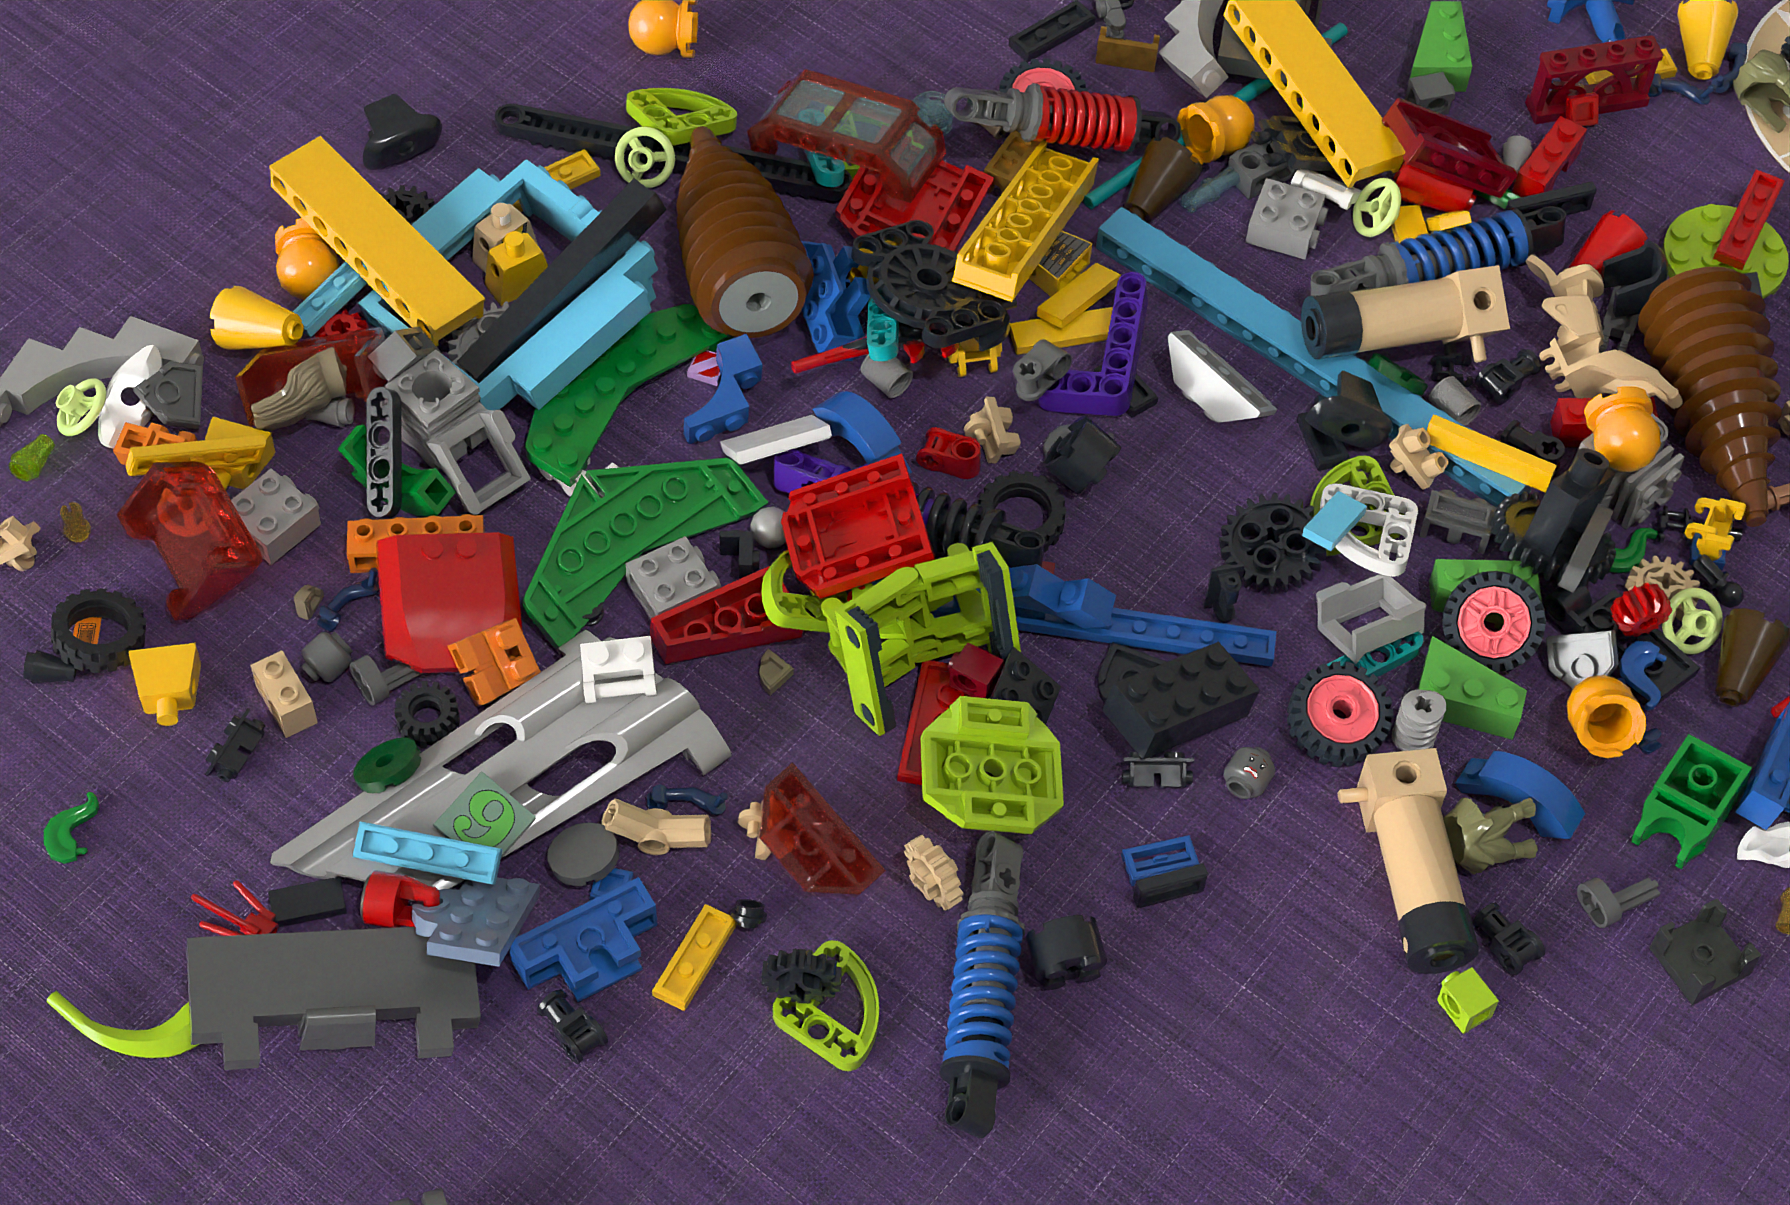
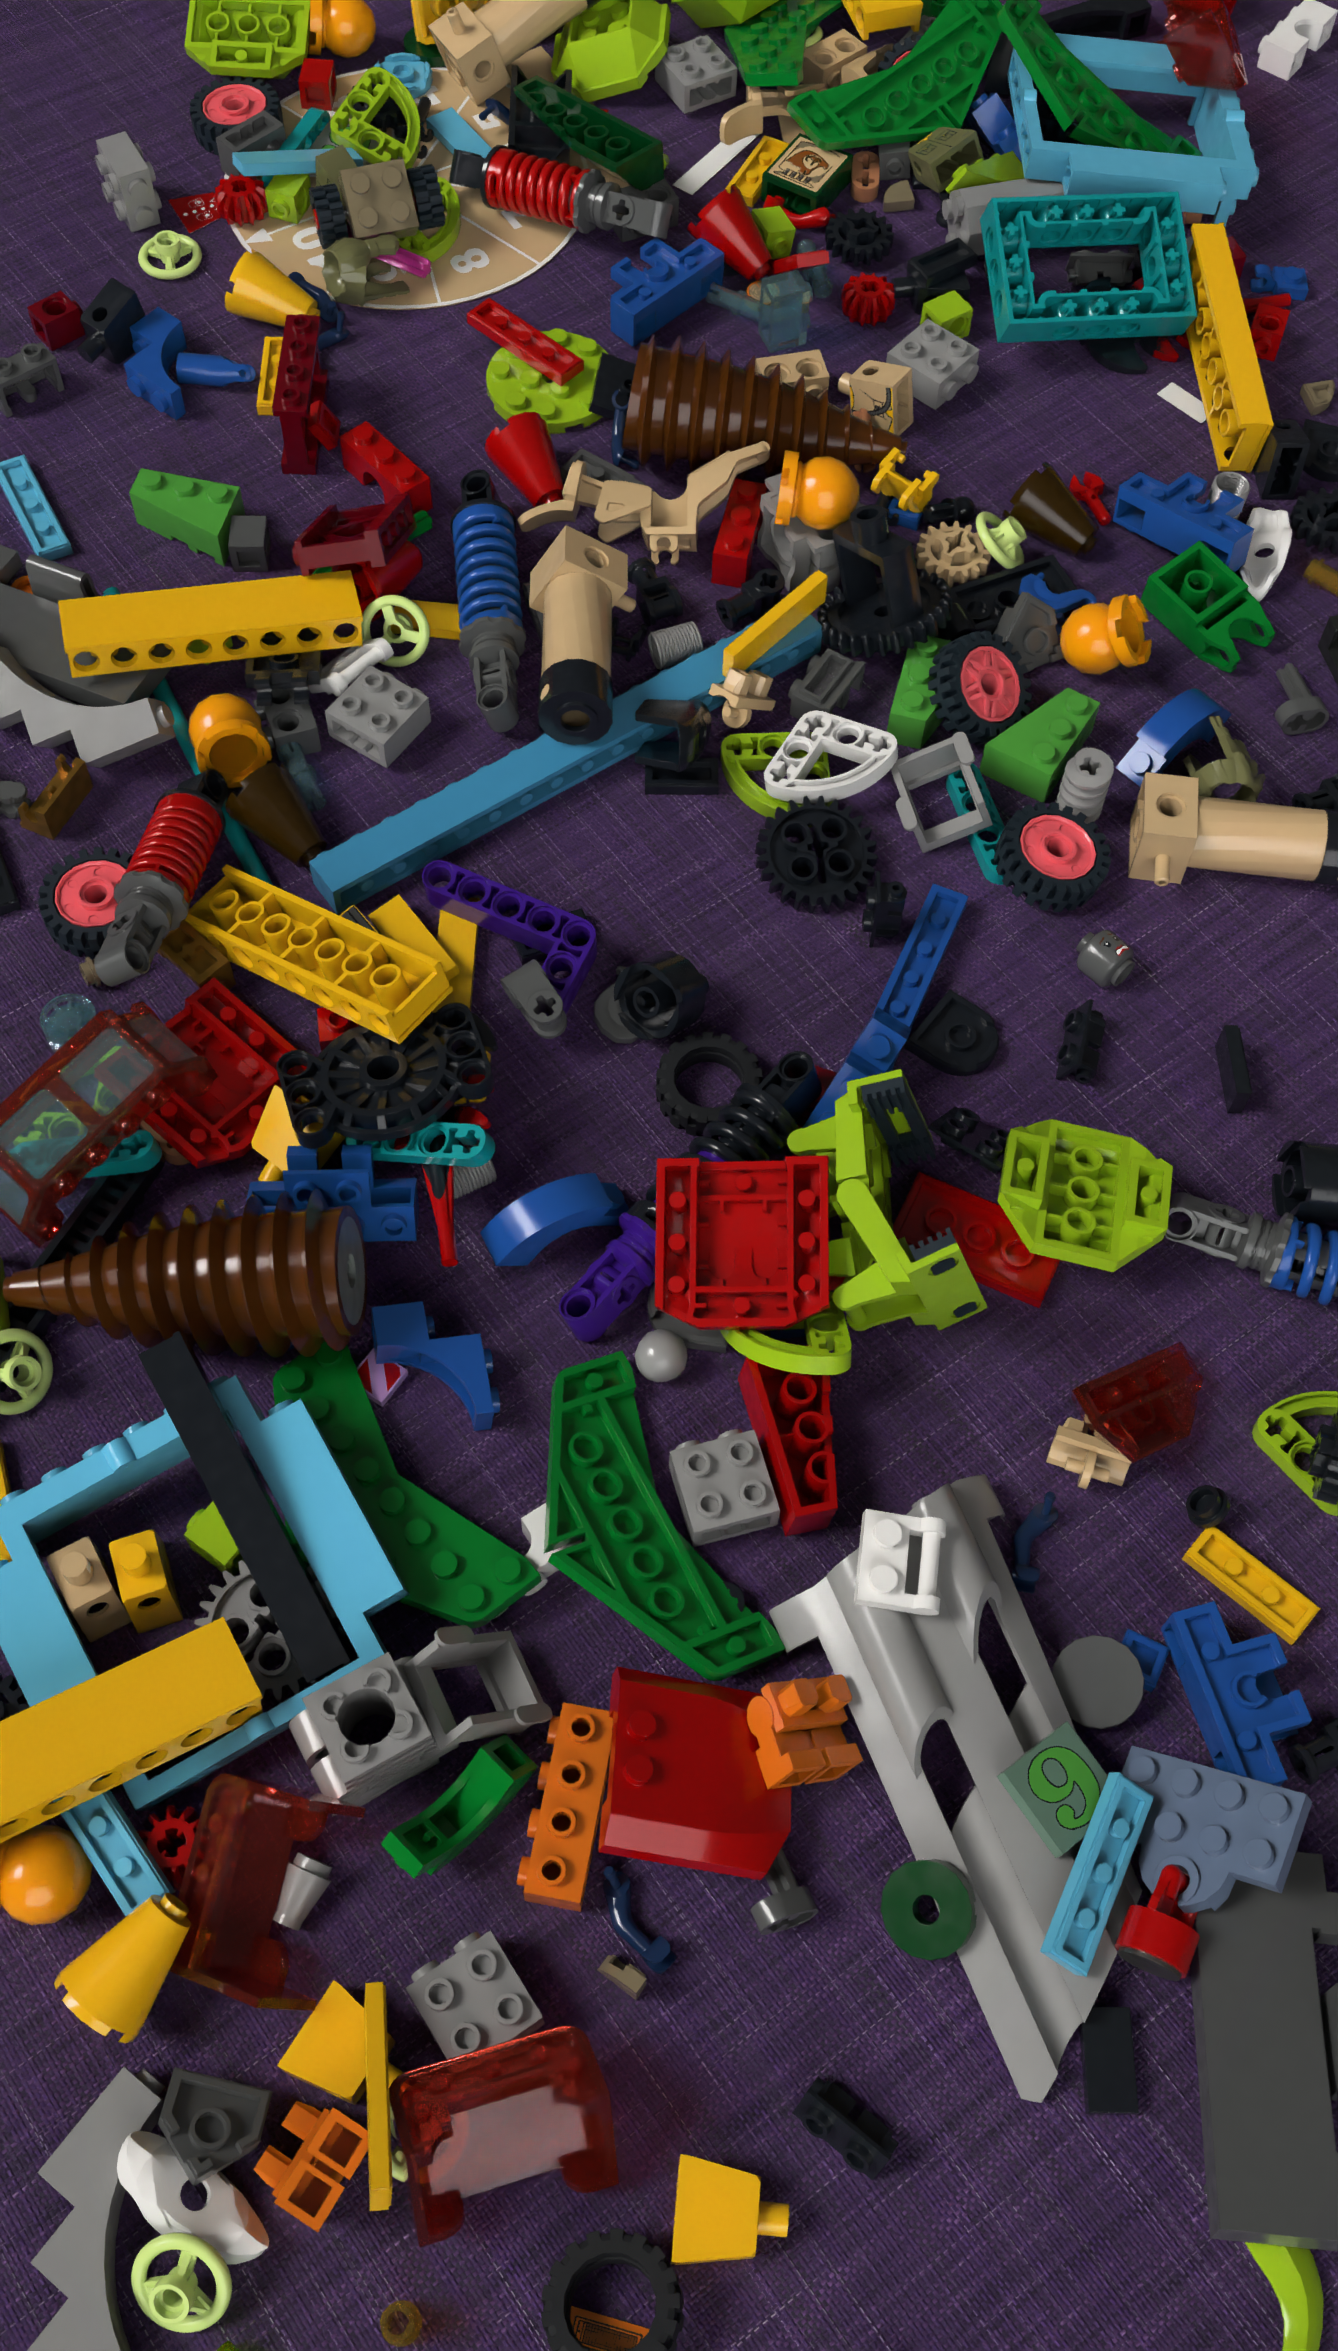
camera: 75 degrees left, 5 degrees up
(253, 924) = (1151, 2138): red plant -> none
(284, 694) = (782, 2036): tan brick -> none
(306, 390) = (291, 1905): dark tan hair -> none
(326, 656) = (731, 1965): dark grey head -> none
(378, 453) = (443, 1806): black beam -> none
(400, 352) = (293, 1747): brick -> none
(421, 698) = (865, 1818): black tyre -> none
(657, 828) = (1081, 1582): tan piece -> none
(740, 544) = (696, 1393): black bracket -> none
(773, 672) = (865, 1406): dark tan tile -> none
(776, 439) = (536, 1317): white tile -> none
(933, 872) = (1201, 1288): tan gear -> none
(951, 454) = (599, 1139): red piece -> none
(974, 671) = (934, 1180): dark red brick -> none
(989, 430) = (583, 1081): tan hips -> none
(1154, 865) = (1192, 1101): blue tile -> none
(1180, 700) = (1018, 989): black brick -> none
(1213, 382) = (598, 843): wedge -> none
(1334, 520) = (827, 781): medium azure tile -> none
(1398, 374) = (637, 676): dark green tile -> none
(1448, 220) = (452, 567): yellow tile -> none
(1516, 152) = (360, 493): light grey cone -> none
(1570, 199) = (441, 491): black tile -> none
(1585, 548) = (970, 586): dark grey beam -> none
(1641, 270) = (595, 439): black piece -> none
(1641, 609) = (998, 565): red gear -> none

